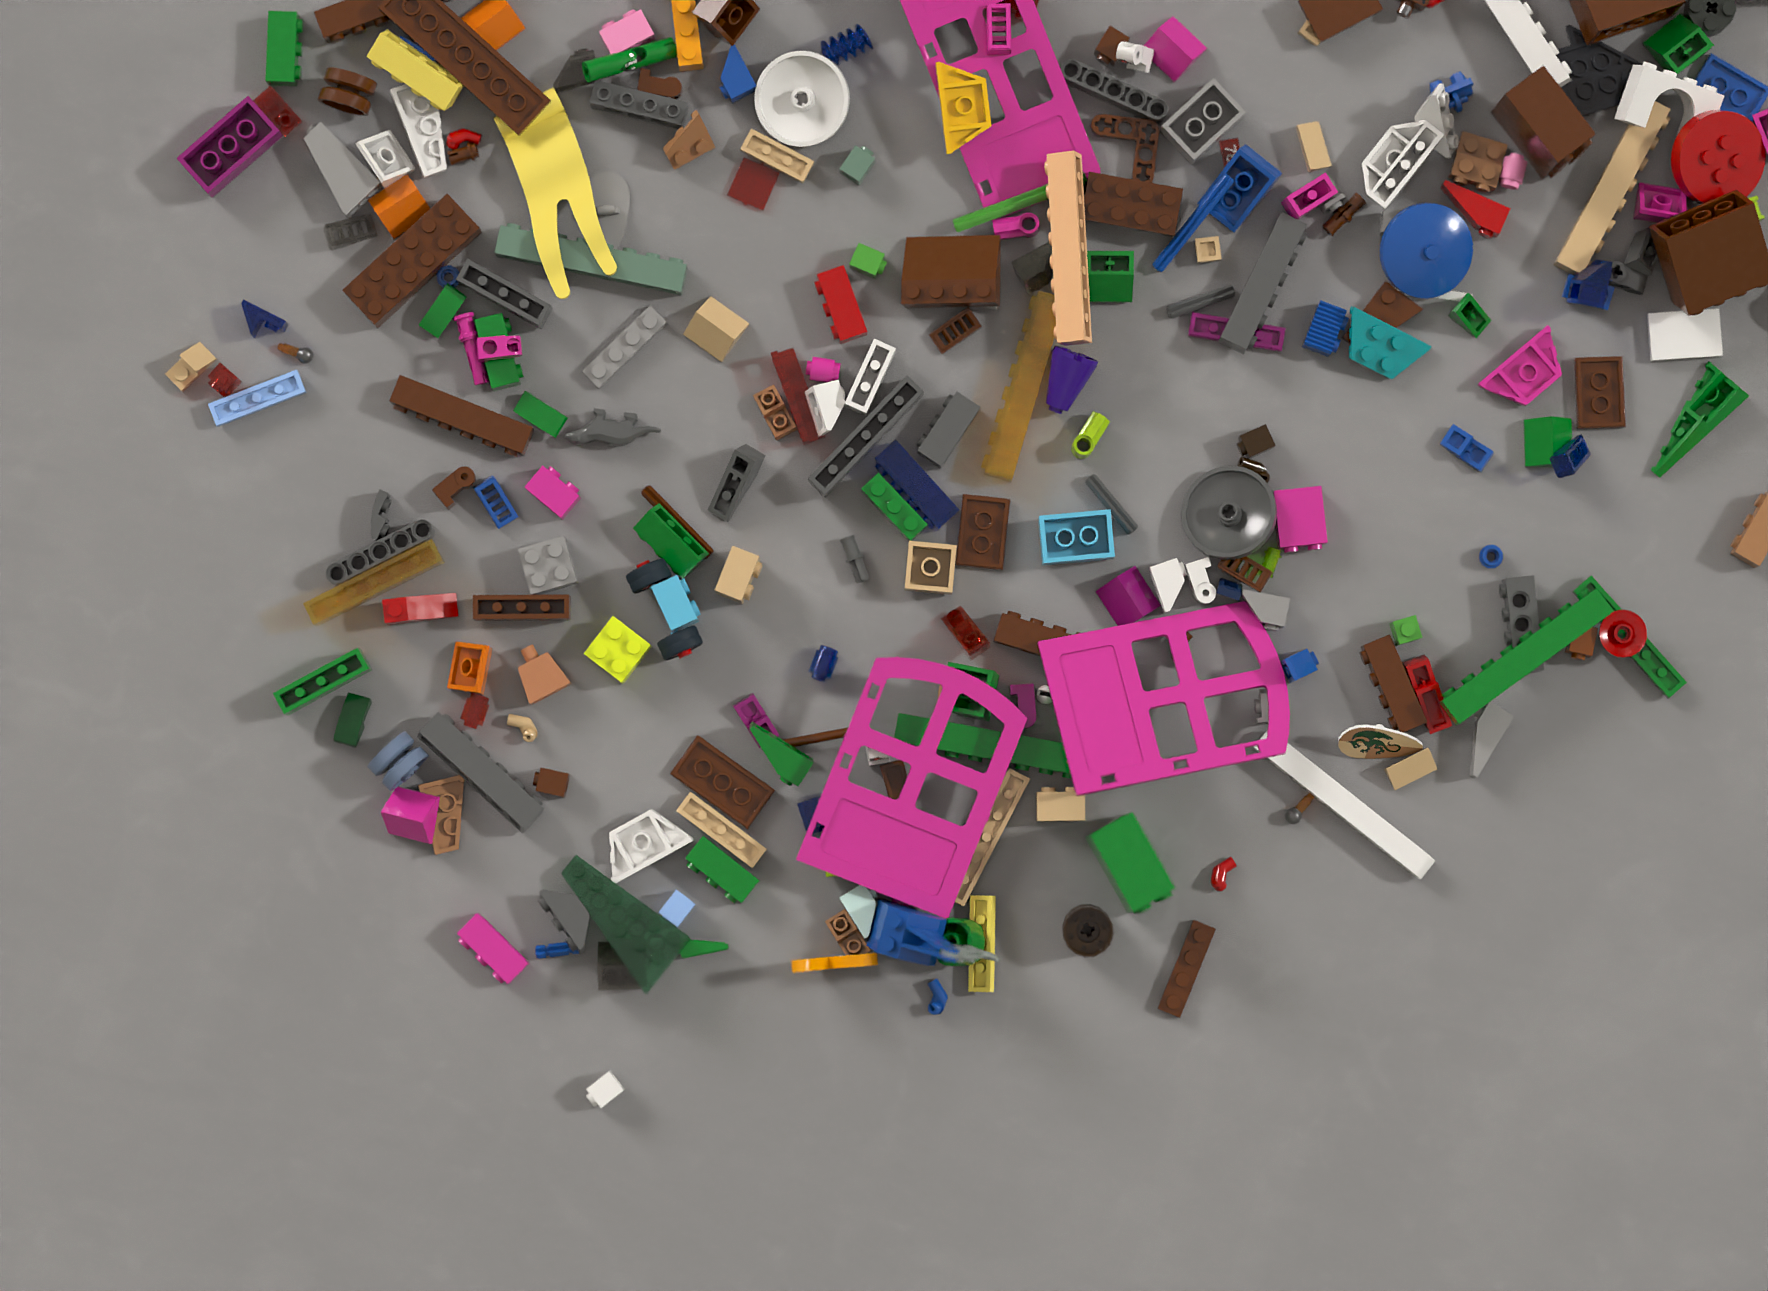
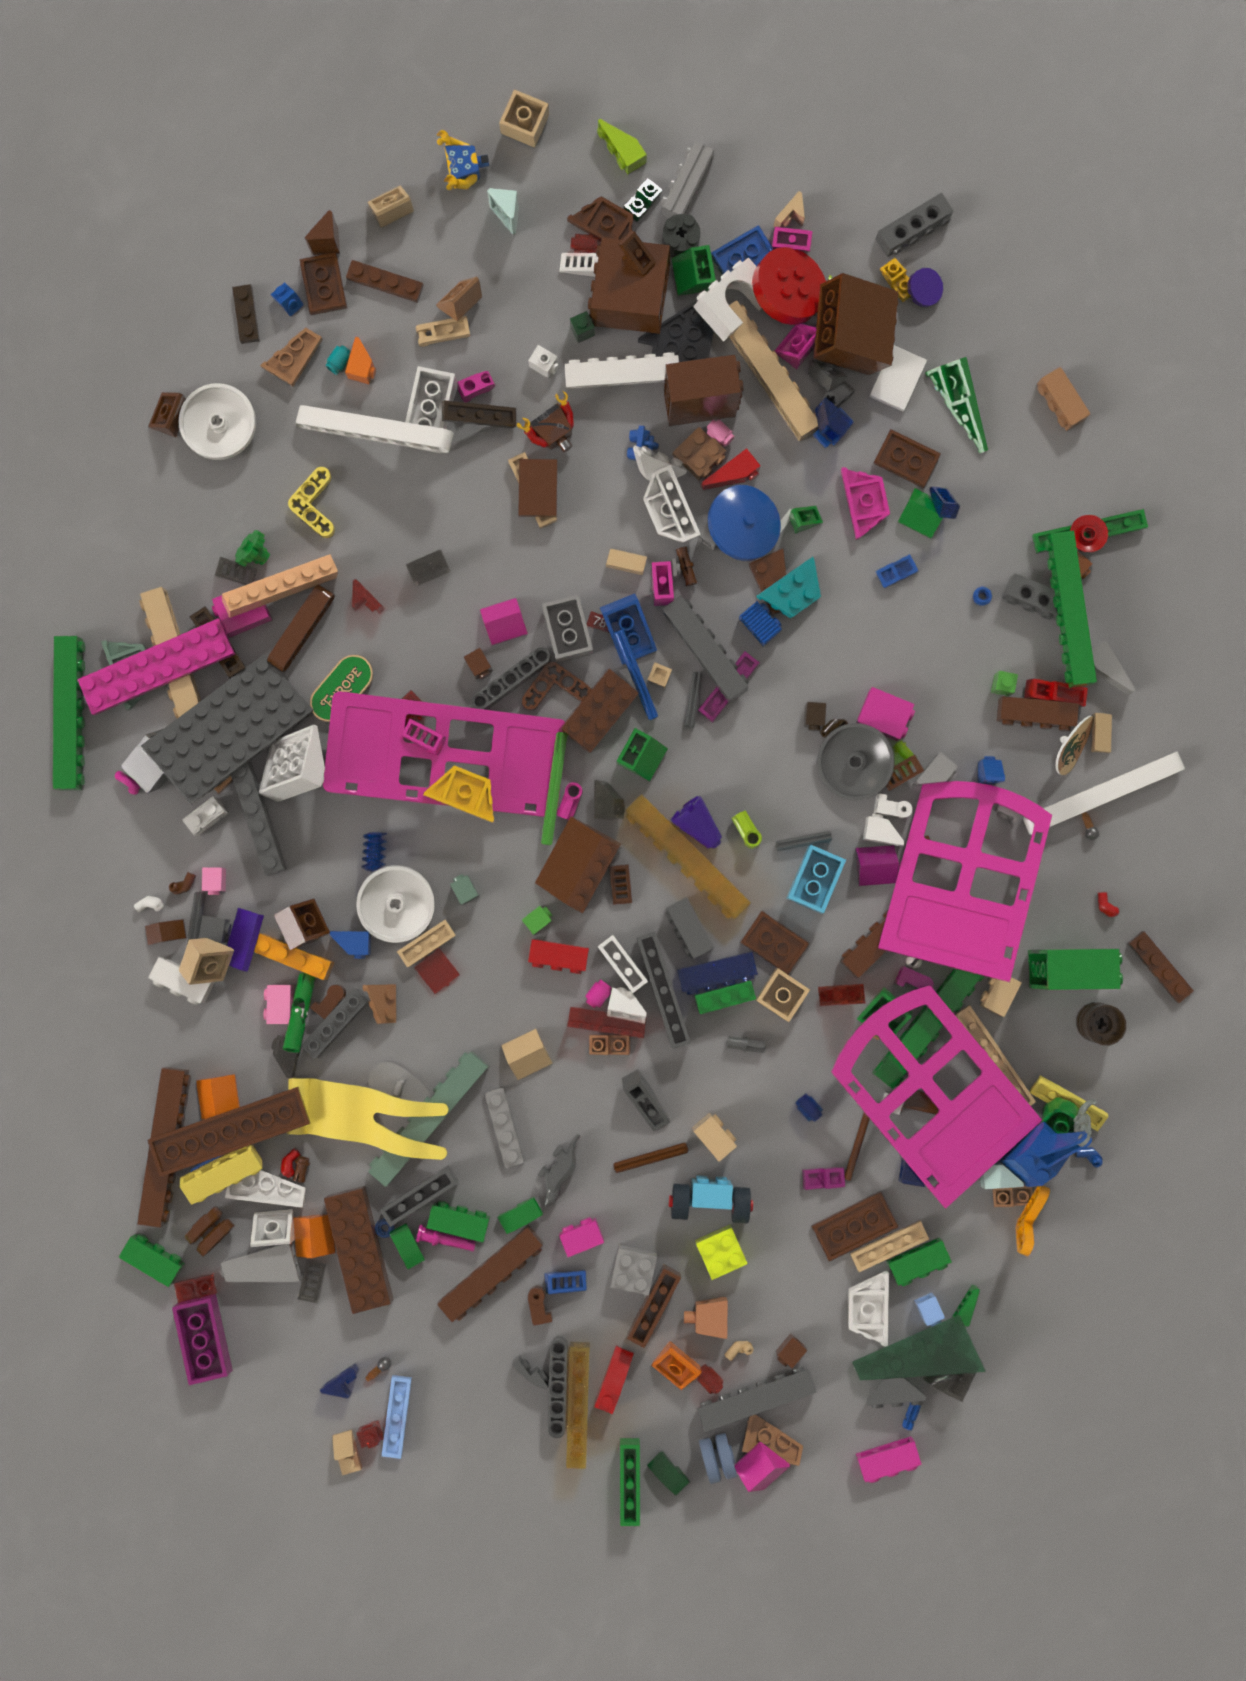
camera: 60 degrees left, 0 degrees up
(498, 347) = (457, 1222): dark pink leg -> none
(604, 1090) = (1032, 1432): white brick -> none
(670, 541) = (663, 1171): green brick -> none
(786, 759) = (863, 1173): green slope -> none
(1068, 248) = (608, 772): light nougat brick -> none
(1135, 55) = (495, 651): white leg -> none
(1229, 589) = (909, 790): dark blue tile -> none

